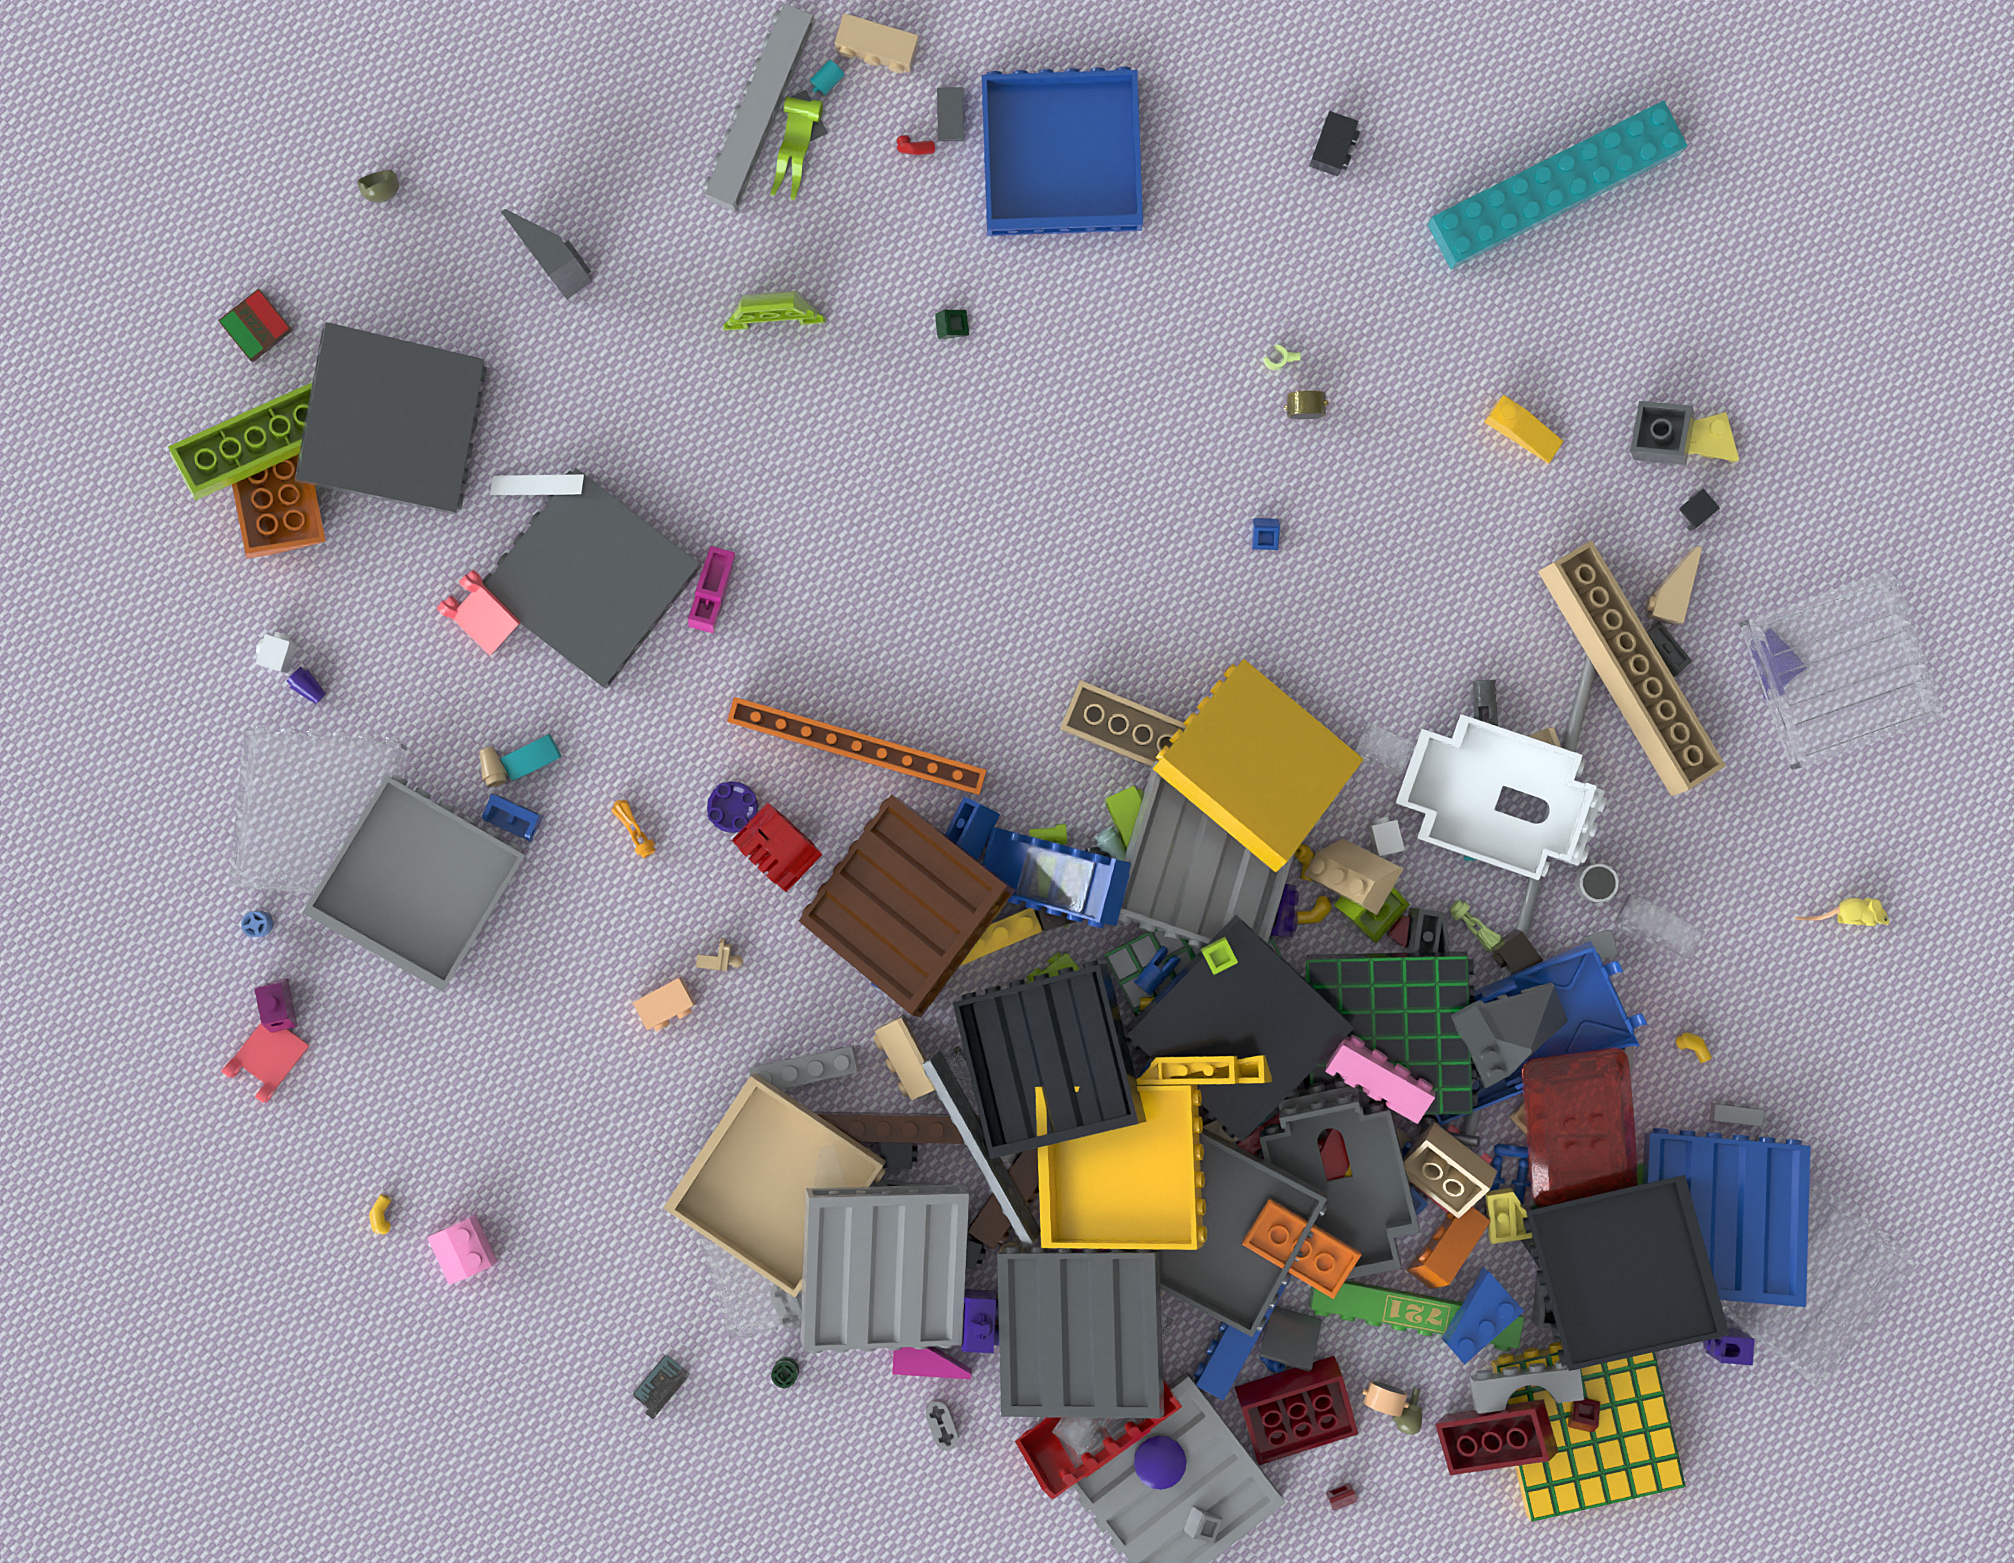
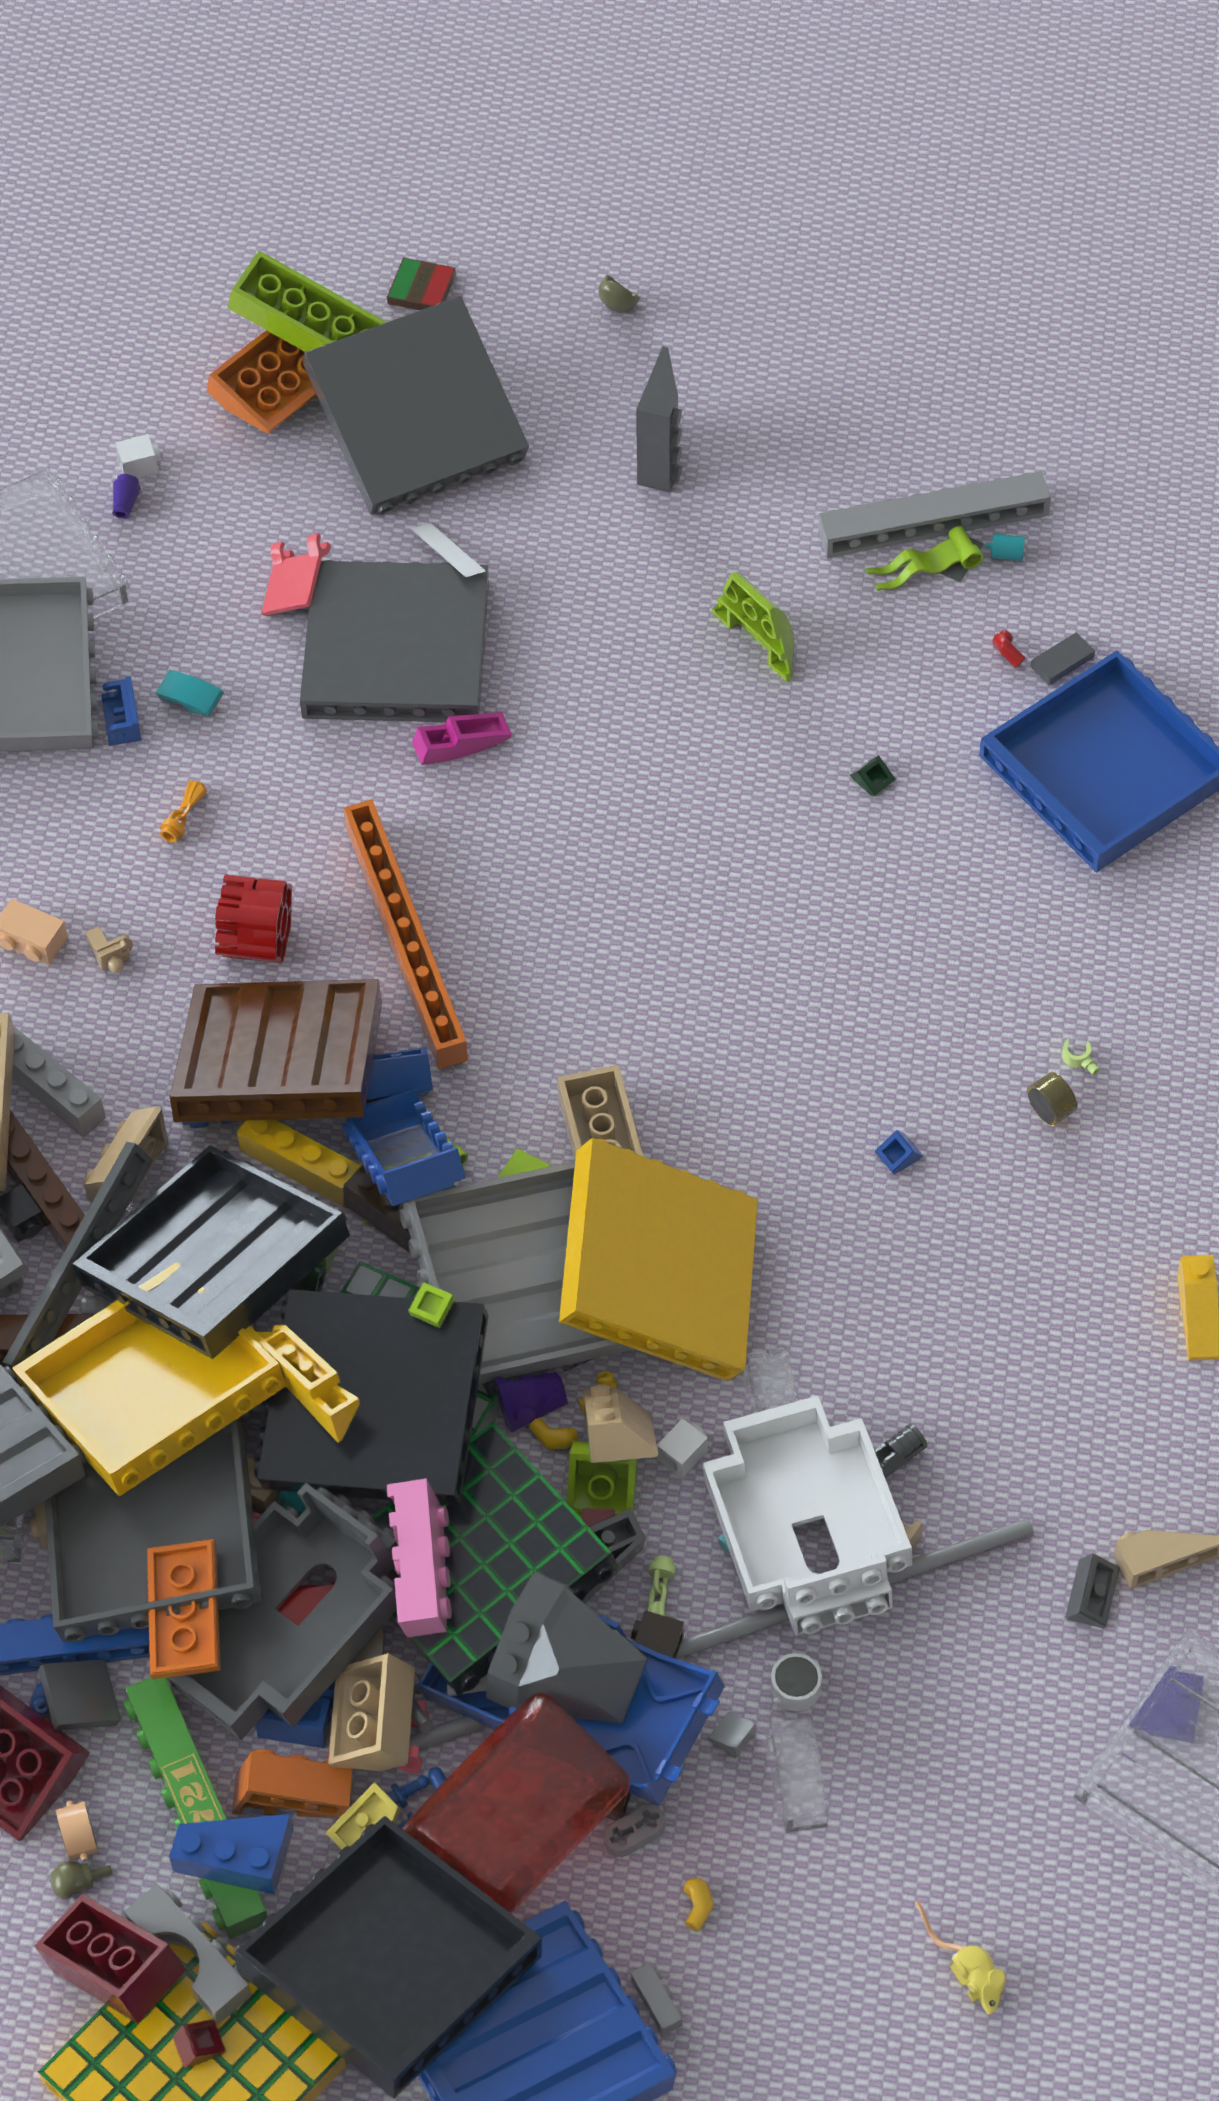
camera: 60 degrees right, 30 degrees down
(492, 768) = (153, 672): tan cone -> none
(731, 806) = (268, 866): dark purple dish -> none
(876, 43) = (1072, 564): tan brick -> none
(1632, 669) = (1043, 1559): tan brick -> none

